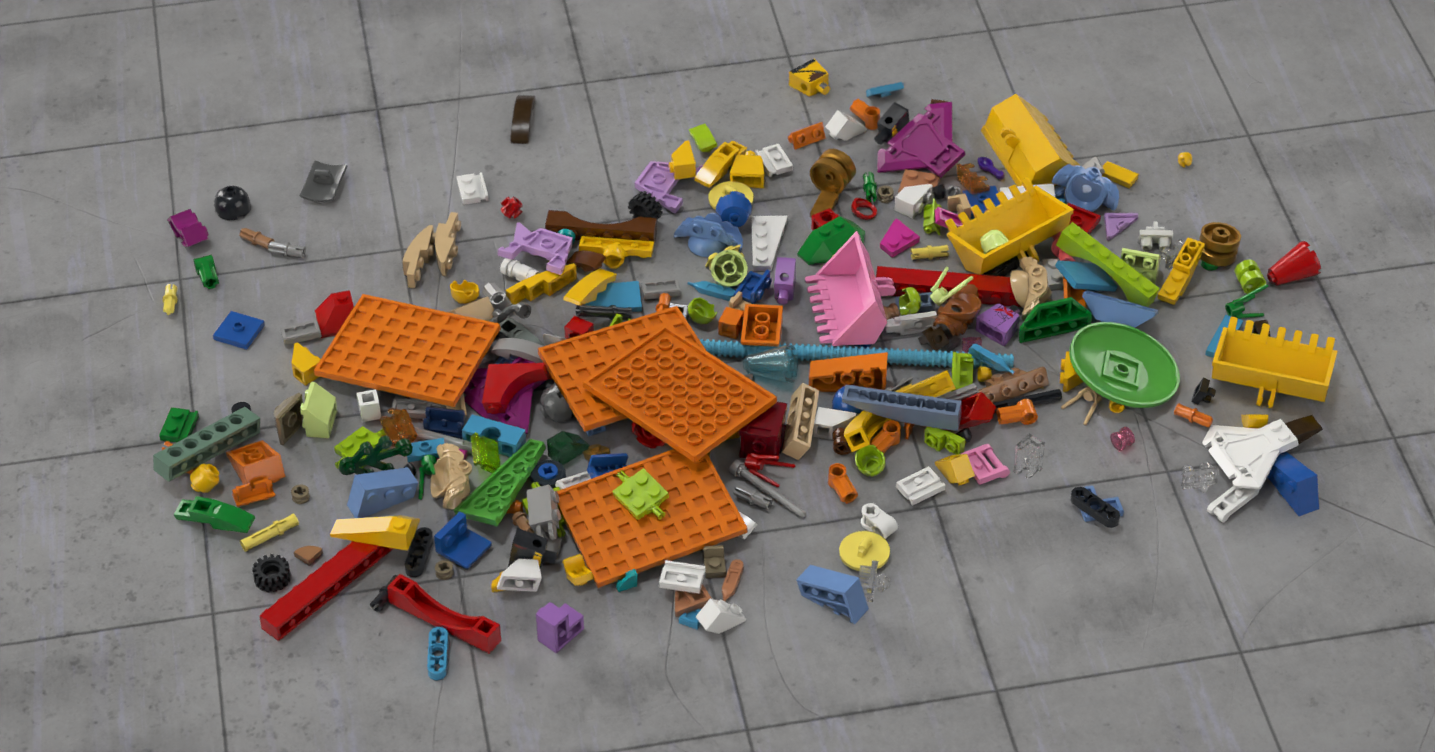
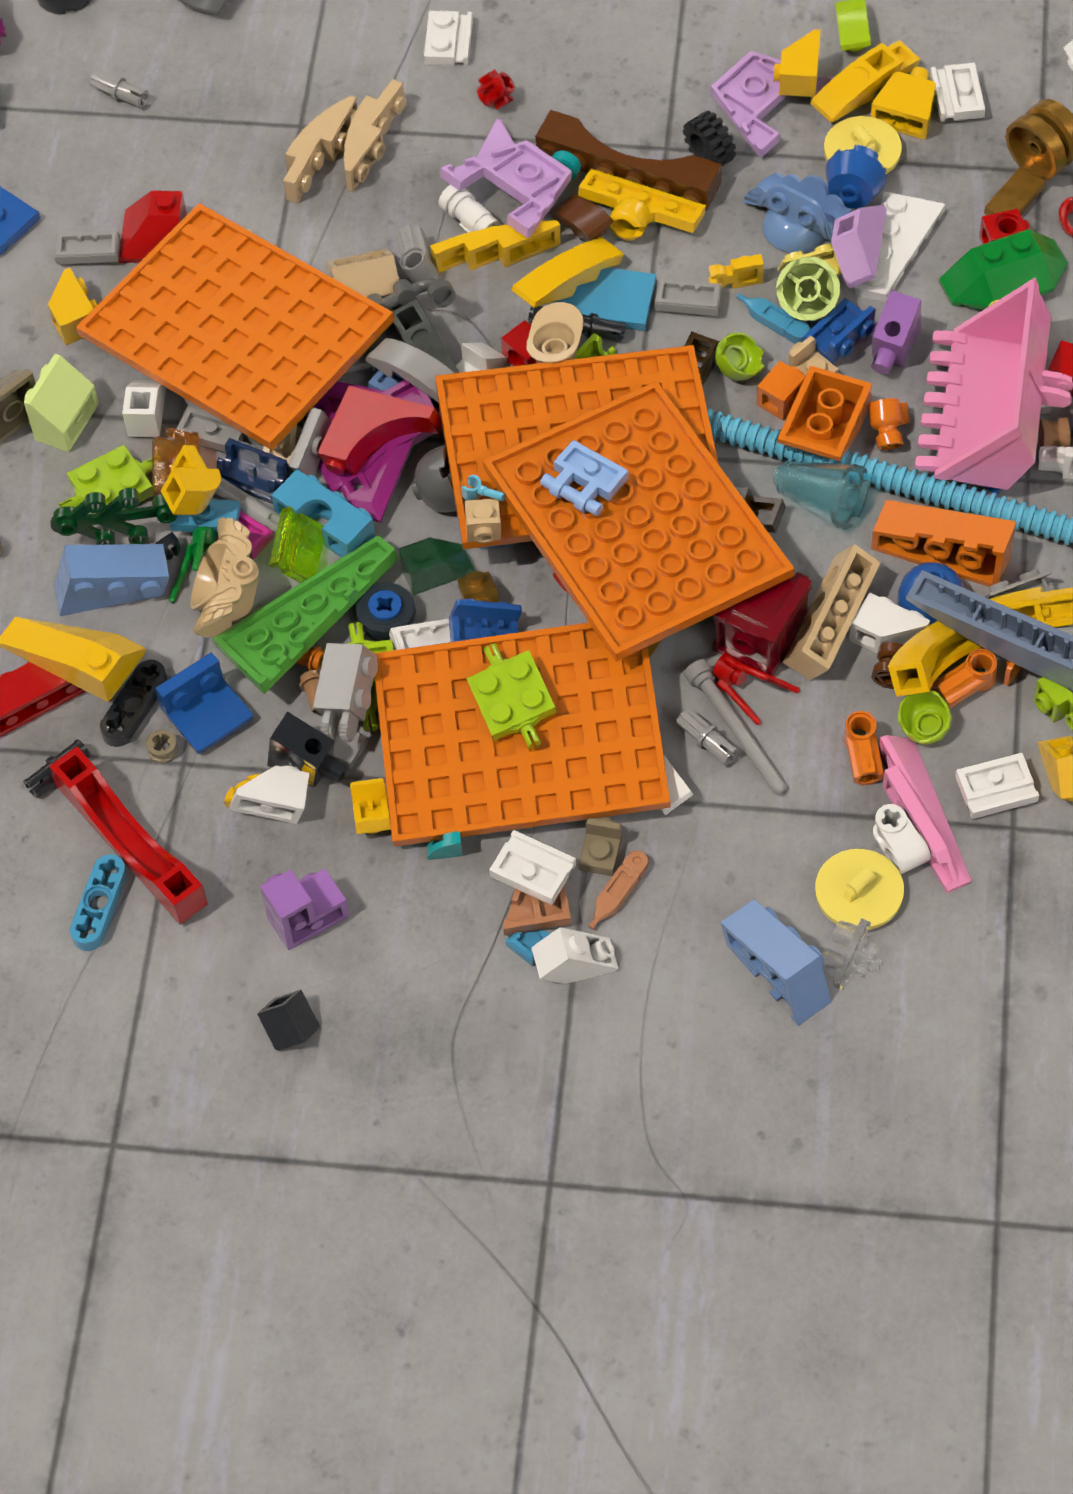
camera: 20 degrees right, 15 degrees up
(255, 237) = (78, 55): medium nougat axle -> none
(415, 430) = (190, 483): none -> yellow brick
(464, 292) = (368, 231): yellow hair -> none
(474, 399) = (306, 451): none -> light grey plate
(571, 683) = (288, 1020): none -> black panel
(581, 397) = (478, 490): none -> medium azure hand
(593, 412) = (483, 520): none -> tan bracket
(597, 315) = (555, 333): none -> tan piece
(647, 372) = (589, 470): none -> light blue plate
(664, 302) = (679, 333): orange axle -> none
(686, 270) = (740, 273): none -> yellow plate
(749, 241) = (858, 243): none -> lavender slope
(796, 323) = (886, 417): none -> orange piece
(807, 135) = (1029, 57): orange hinge -> none
(870, 493) = (912, 790): none -> bright pink wedge

